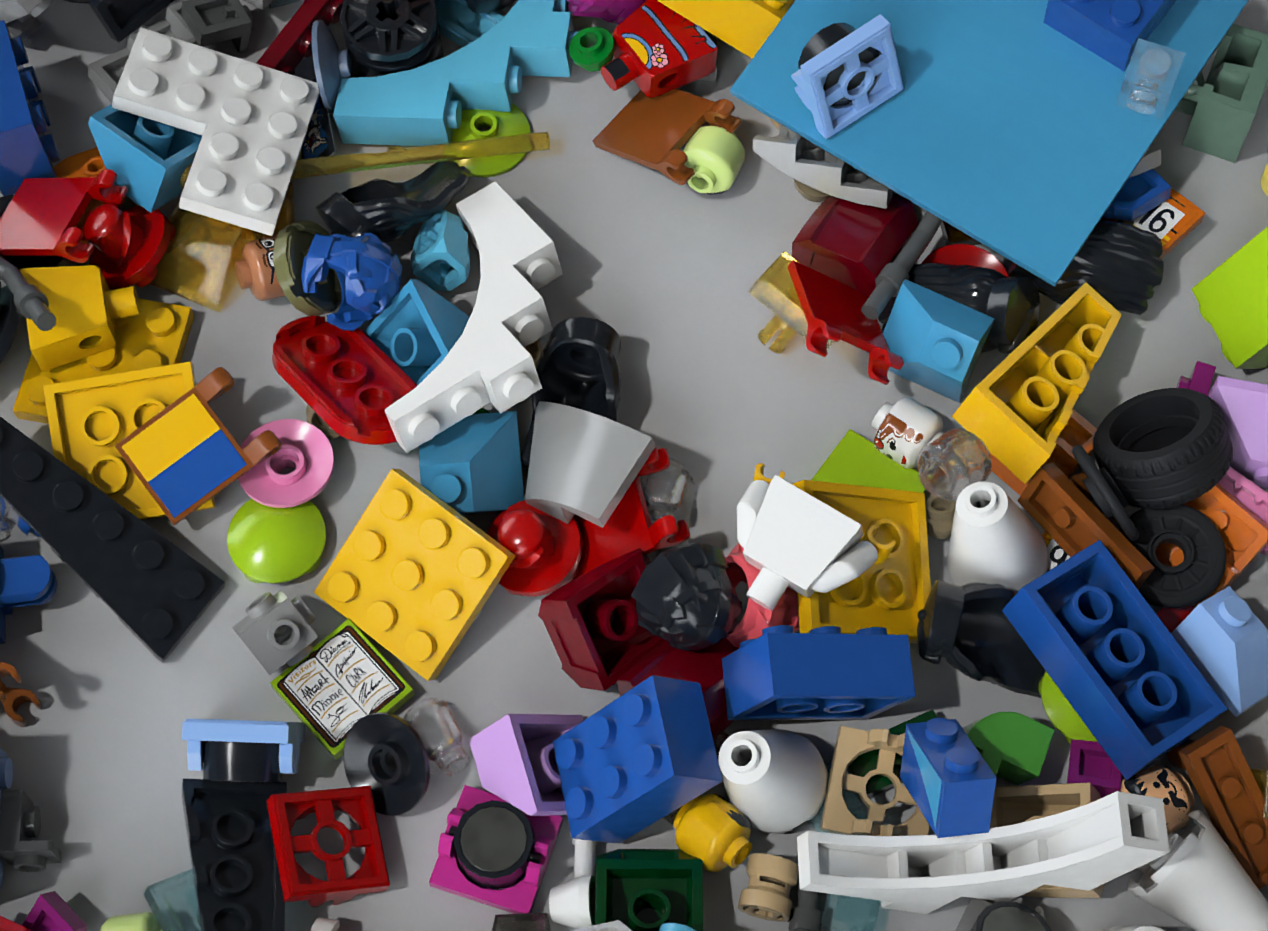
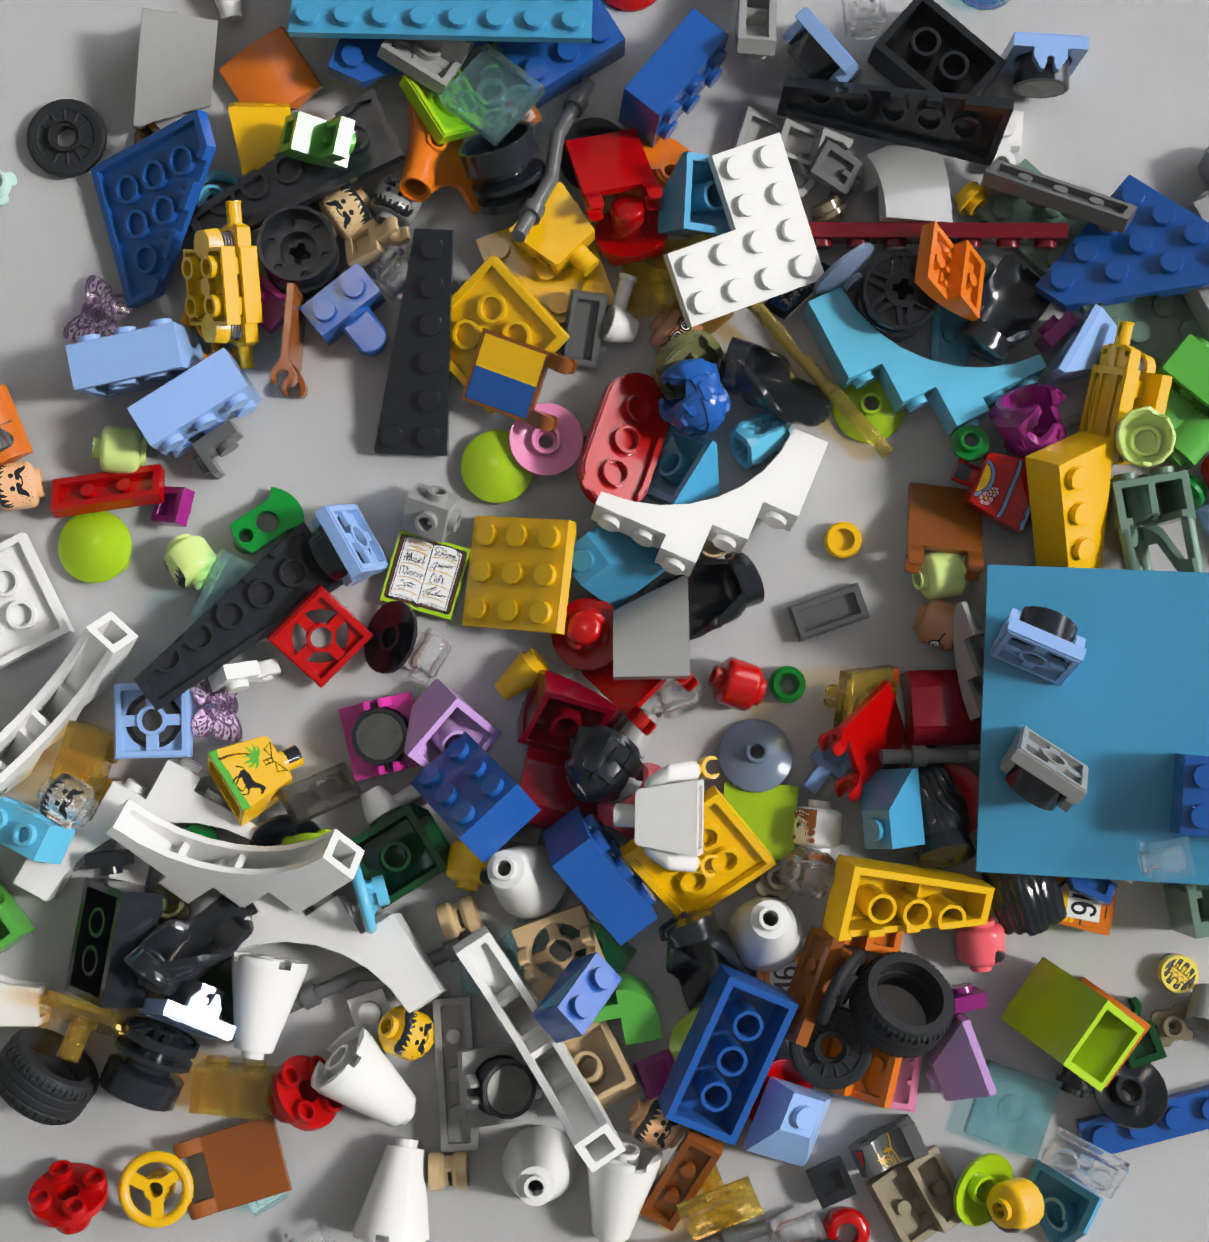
camera: 60 degrees right, 20 degrees up
(157, 858) = (279, 504): none -> green piece
(182, 339) = (584, 326): none -> dark grey tile
(212, 319) = (618, 323): none -> white bar
(253, 46) = (829, 209): none -> dark tan plate
(529, 647) = (521, 674): none -> yellow cone
(609, 238) = (842, 540): none -> yellow tile
(677, 295) = (828, 612): none -> dark grey tile
(694, 423) = (737, 684): none -> red head
(728, 366) = (795, 675): none -> green plate
(763, 191) = (935, 624): none -> nougat head
(808, 458) = (752, 773): none -> sand blue dish
(842, 378) = (826, 765): none -> medium blue plate
(987, 142) = (1044, 772): none -> light grey piece
(1140, 344) = (981, 945): none -> coral head

